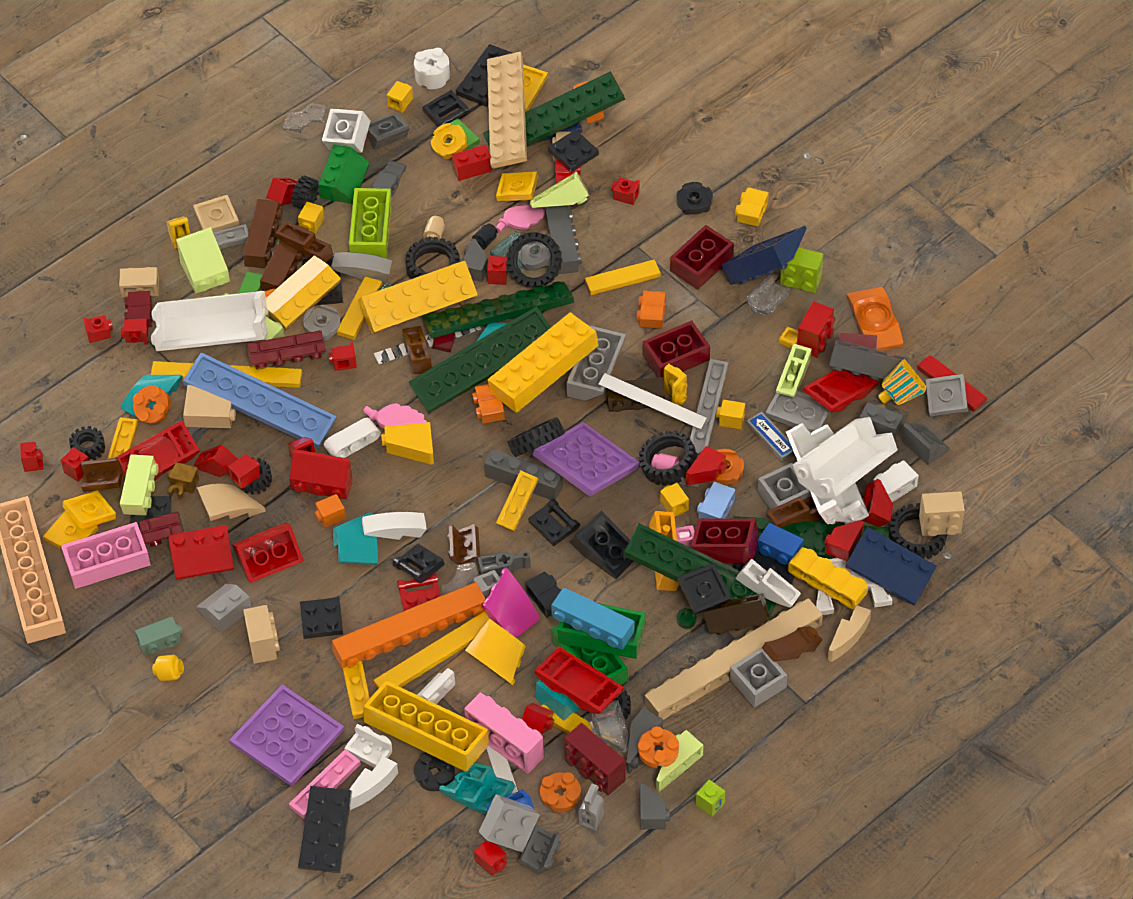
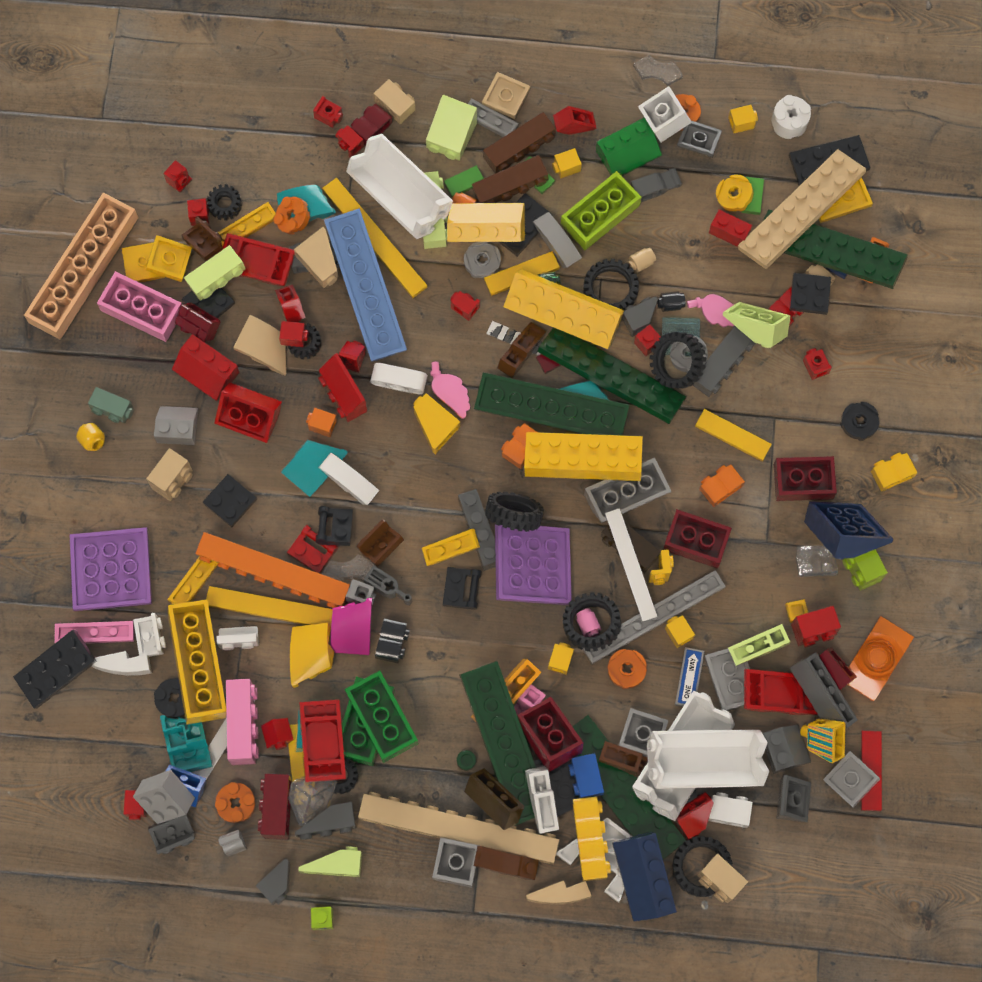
camera: 45 degrees right, 20 degrees up
(178, 228) = (464, 84): yellow slope -> none
(183, 479) = (254, 295): pearl gold brick -> none
(285, 349) = (428, 259): dark red brick -> none
(304, 241) = (532, 183): reddish brown slope -> none
(305, 191) = (582, 138): black tyre -> none
(444, 105) = (764, 157): black plate -> none
(517, 186) = (739, 282): yellow plate -> none
(592, 618) = (372, 709): dark azure brick -> none
(603, 545) = (472, 642): black slope -> none
(661, 737) = (333, 852): orange plate -> none
(704, 589) = (487, 759): black plate -> none
(706, 467) = (608, 658): red slope -> none
(717, 502) = (585, 694): light blue brick -> none
(844, 540) = (636, 820): red slope -> none

